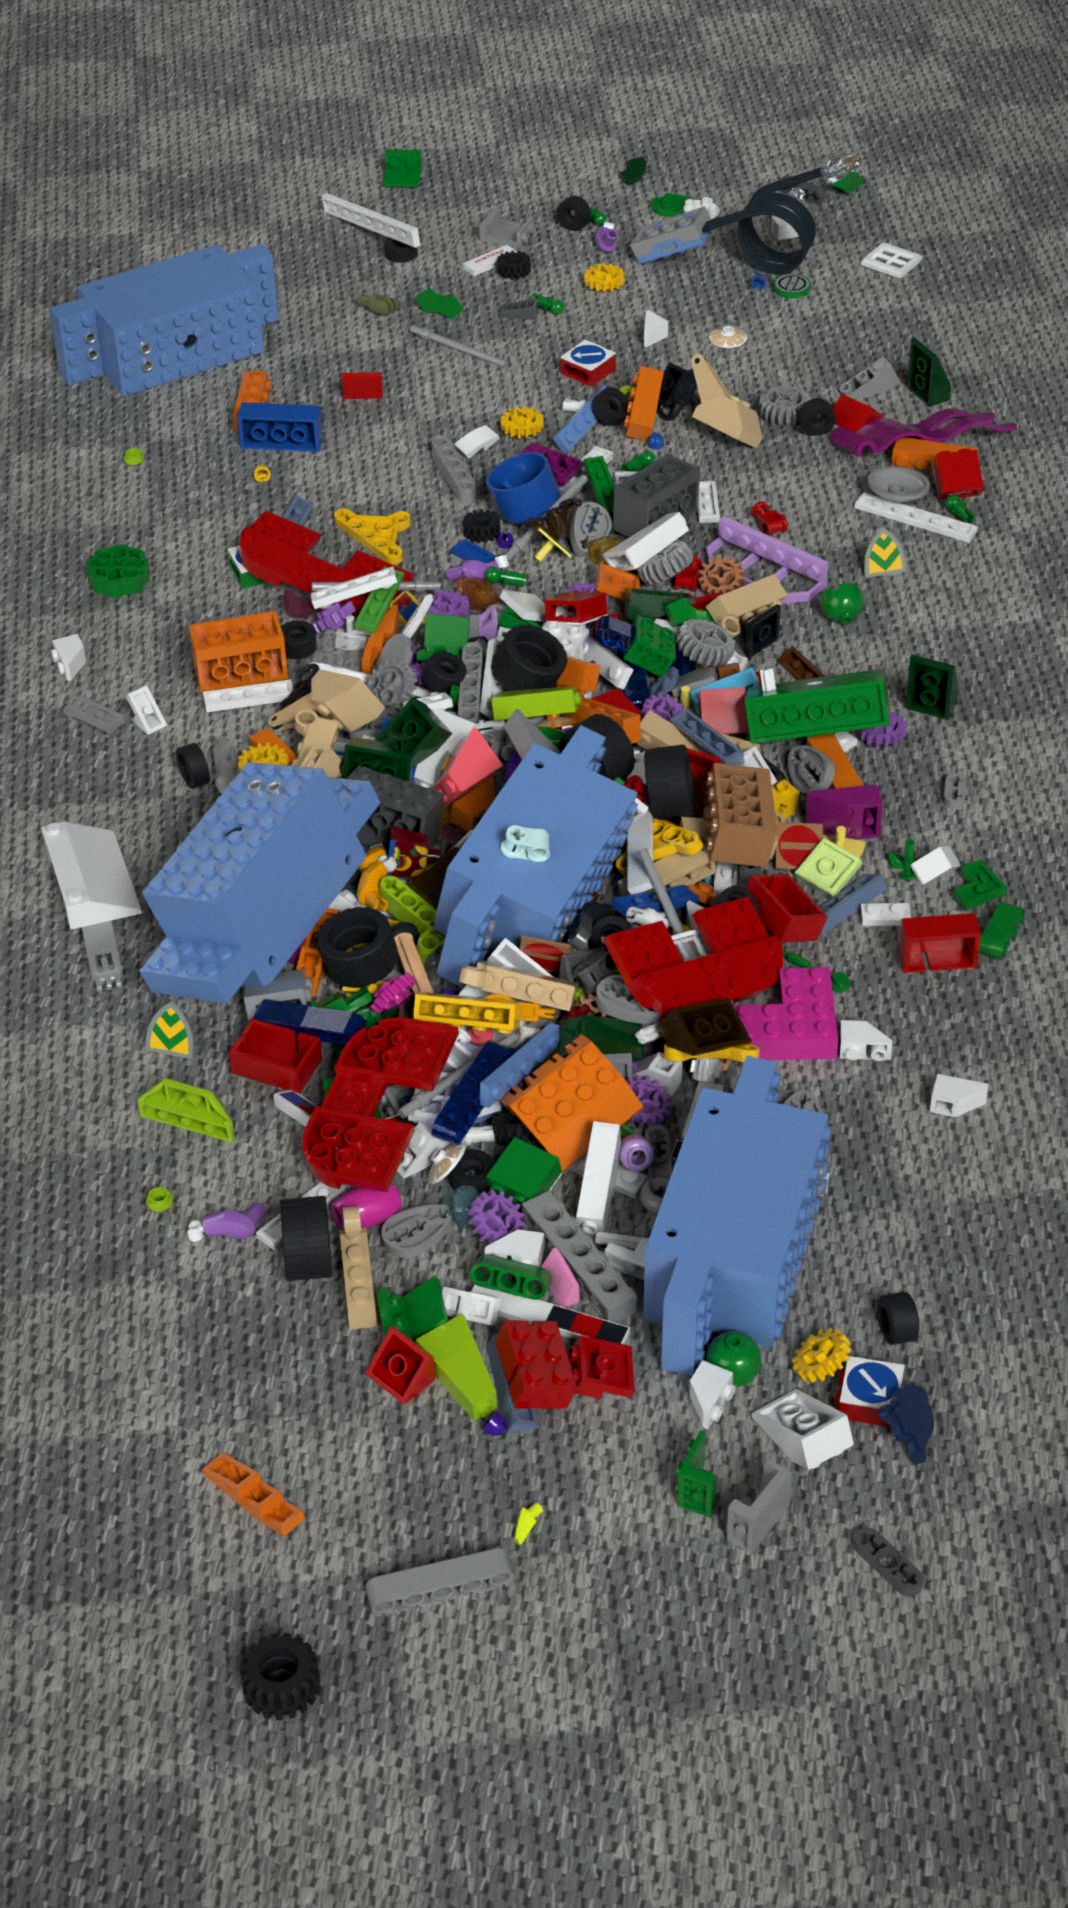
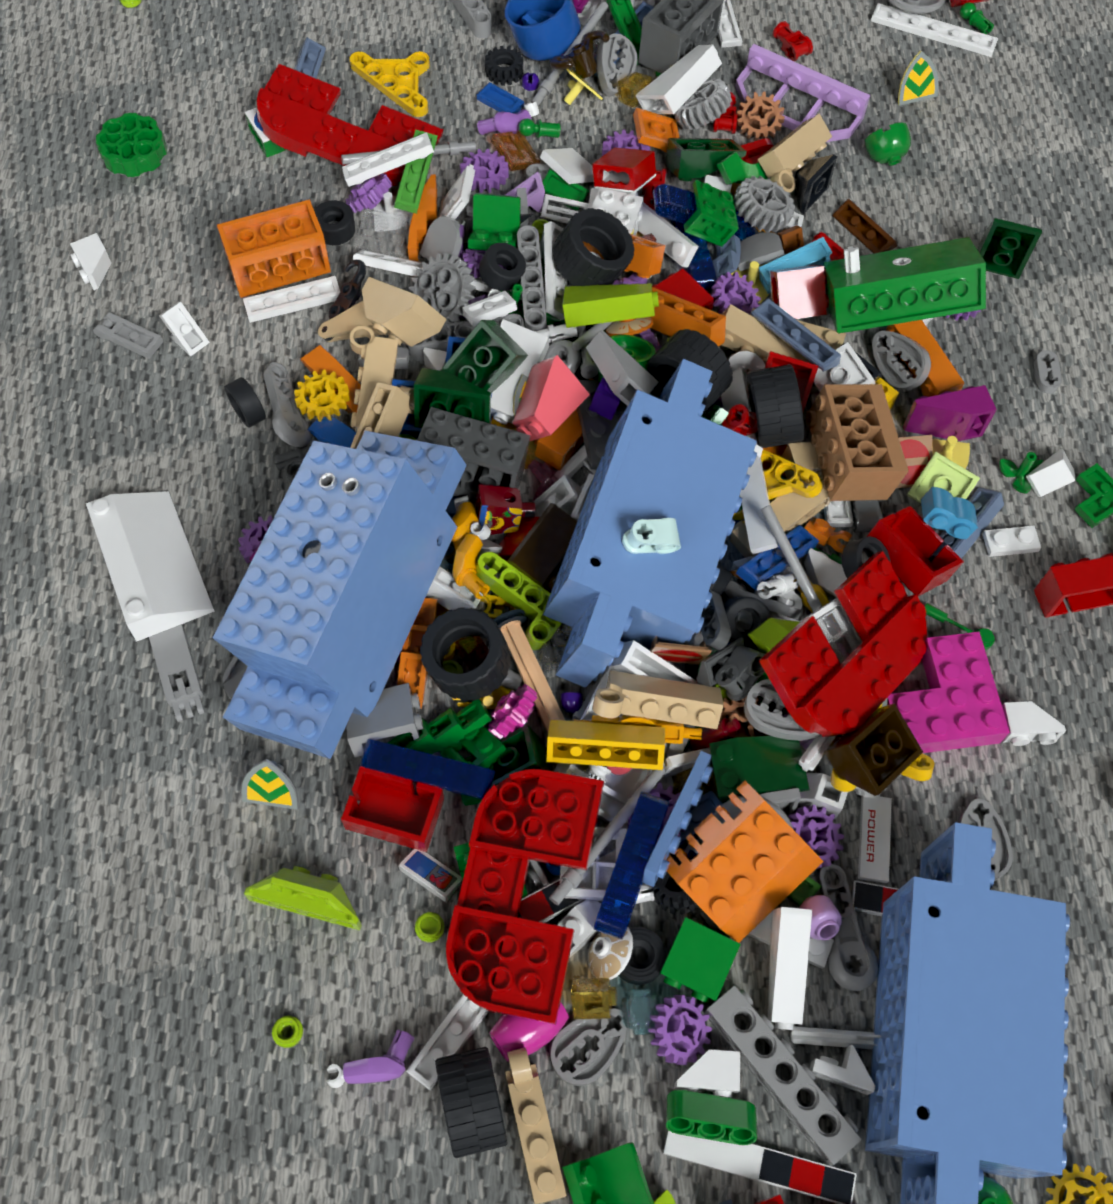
camera: 10 degrees left, 20 degrees up
(261, 474) = (267, 9): yellow hinge -> none
(292, 1141) = (429, 927): none -> lime plate
(297, 606) = (328, 178): clear pink plate -> none
(407, 605) = (445, 173): slope -> none
(416, 1187) = (592, 998): none -> clear yellow brick
(472, 1305) = (672, 1162): white slope -> none
(564, 1285) = (768, 1111): bright pink slope -> none
(827, 883) = (949, 513): none -> dark azure brick

